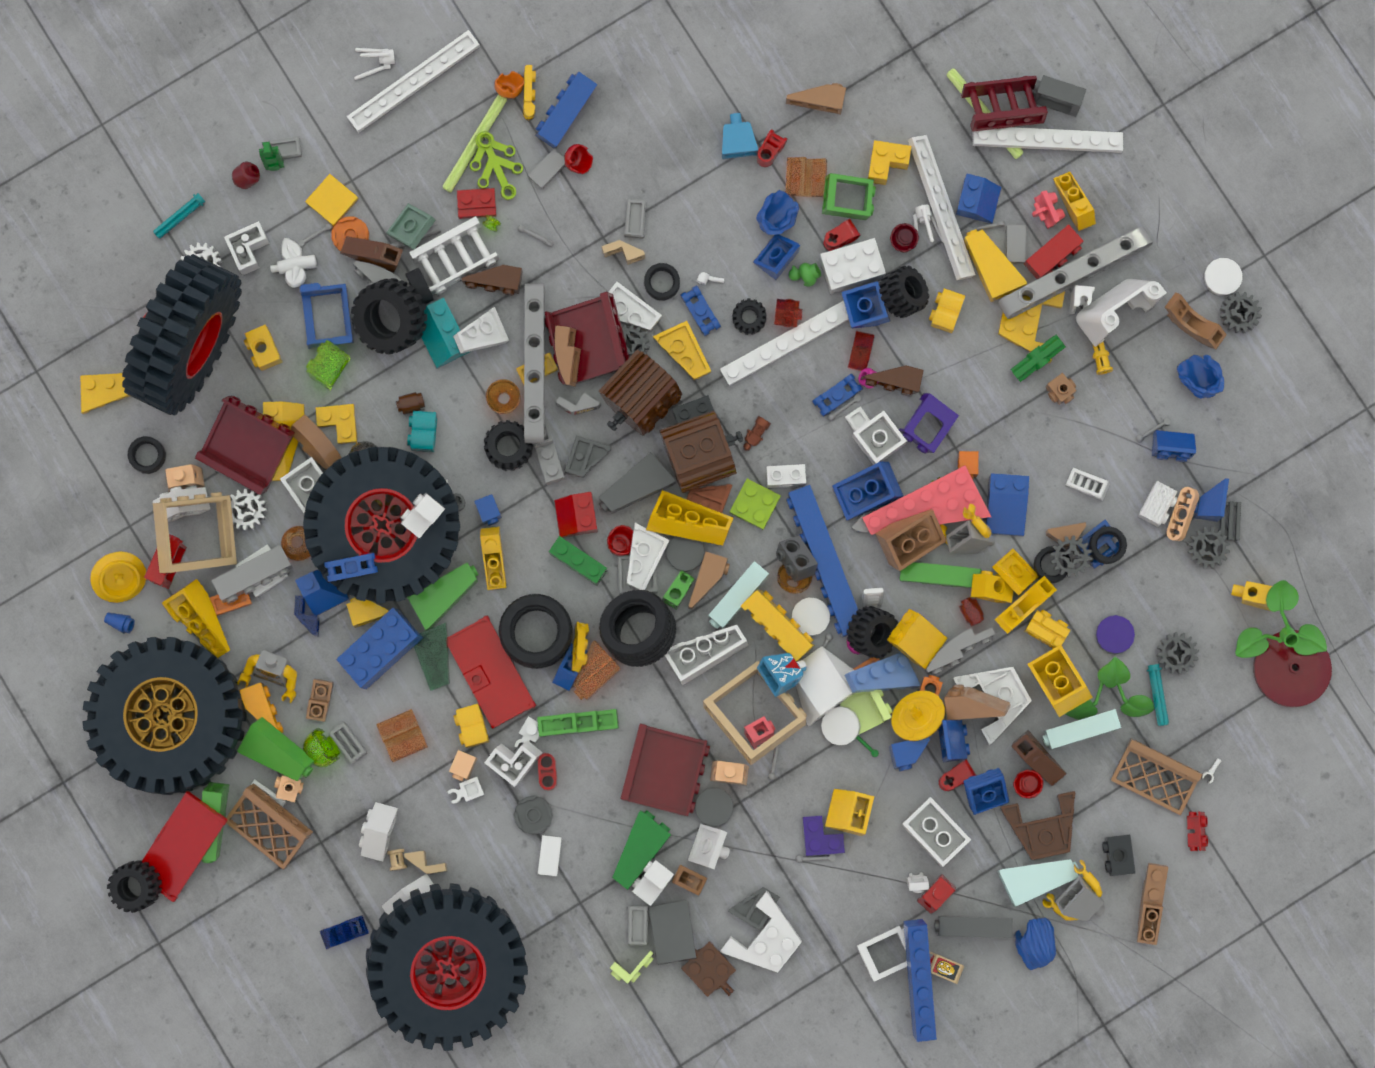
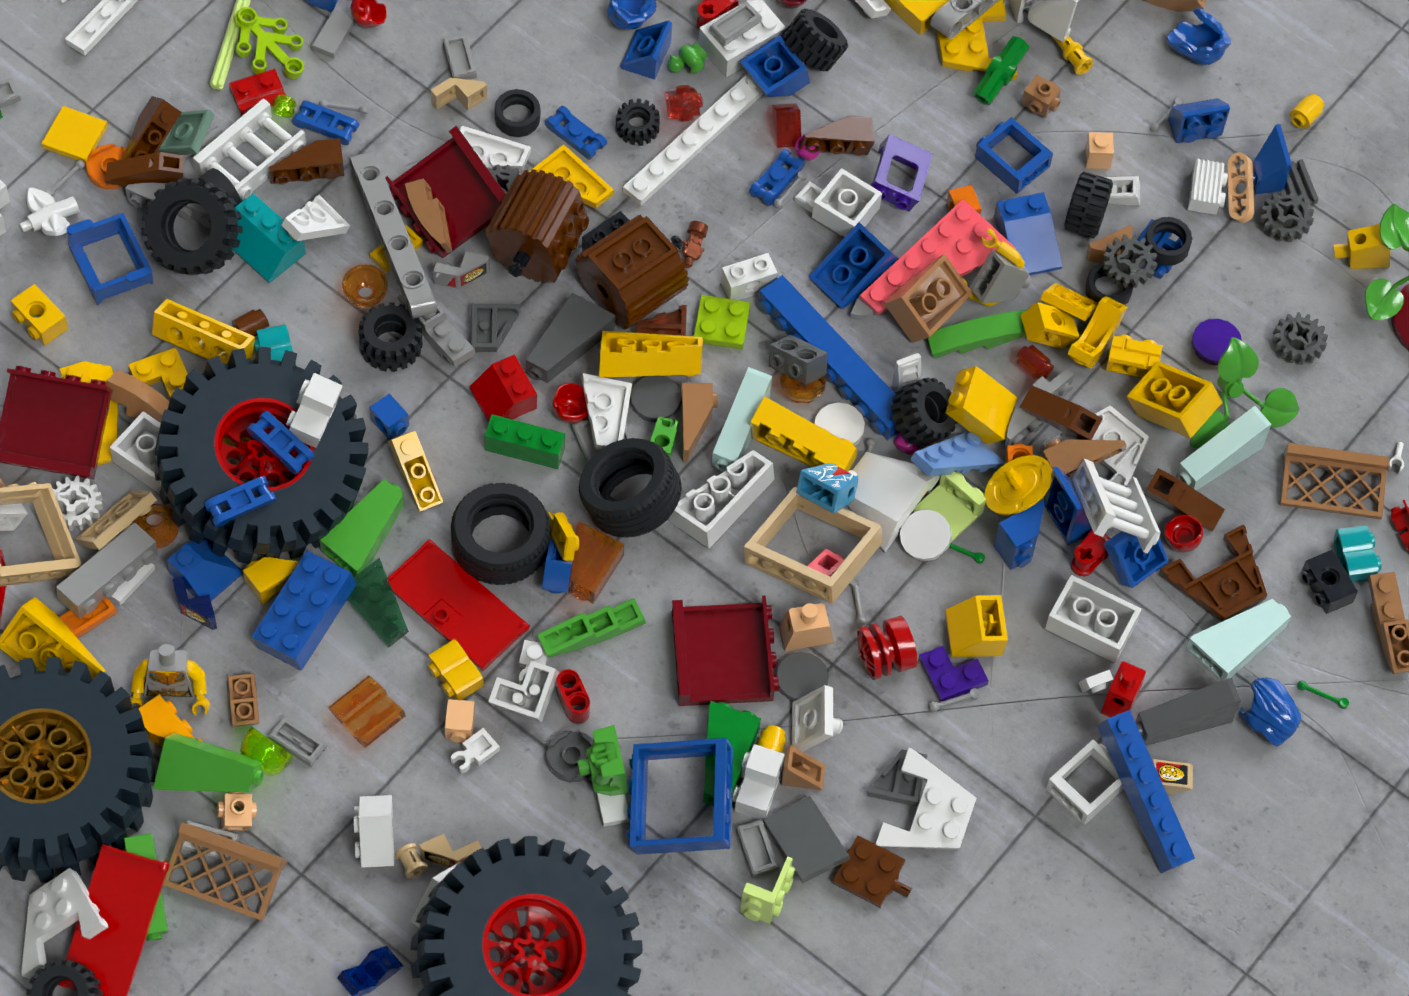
camera: 25 degrees left, 20 degrees down
(145, 820) = (52, 911): none -> white wing
(269, 534) = (116, 519): none -> tan plate
(327, 364) = (129, 308): clear neon green slope -> none
(374, 403) = (199, 332): none -> yellow brick
(386, 217) = (152, 127): none -> reddish brown slope
(393, 529) = (280, 442): none -> blue plate
(517, 245) = (325, 122): none -> blue plate
(550, 835) = (605, 763): none -> bright green brick
(622, 887) = (637, 786): none -> blue window
(672, 853) = (772, 738): none -> yellow brick
(704, 277) = (567, 96): white hand -> none
(778, 809) = (892, 646): none -> red wheel
(847, 261) = (735, 23): none -> light grey tile
(947, 310) = (873, 53): yellow brick -> none
(962, 761) = (1103, 514): none -> white fence
(971, 667) = (1061, 413): none -> reddish brown slope
(1027, 450) = (1030, 171): none -> blue window
(1059, 497) = (1088, 204): none -> black tyre
(1080, 899) = (1304, 640): light grey torso -> none
(1087, 448) = (1099, 150): none -> light nougat brick
(1093, 949) = (1342, 703): none -> green hinge
(1149, 839) = (1356, 552): none -> teal brick
(1158, 694) = (1290, 382): teal axle -> none
(1260, 462) = (1307, 111): none -> yellow brick

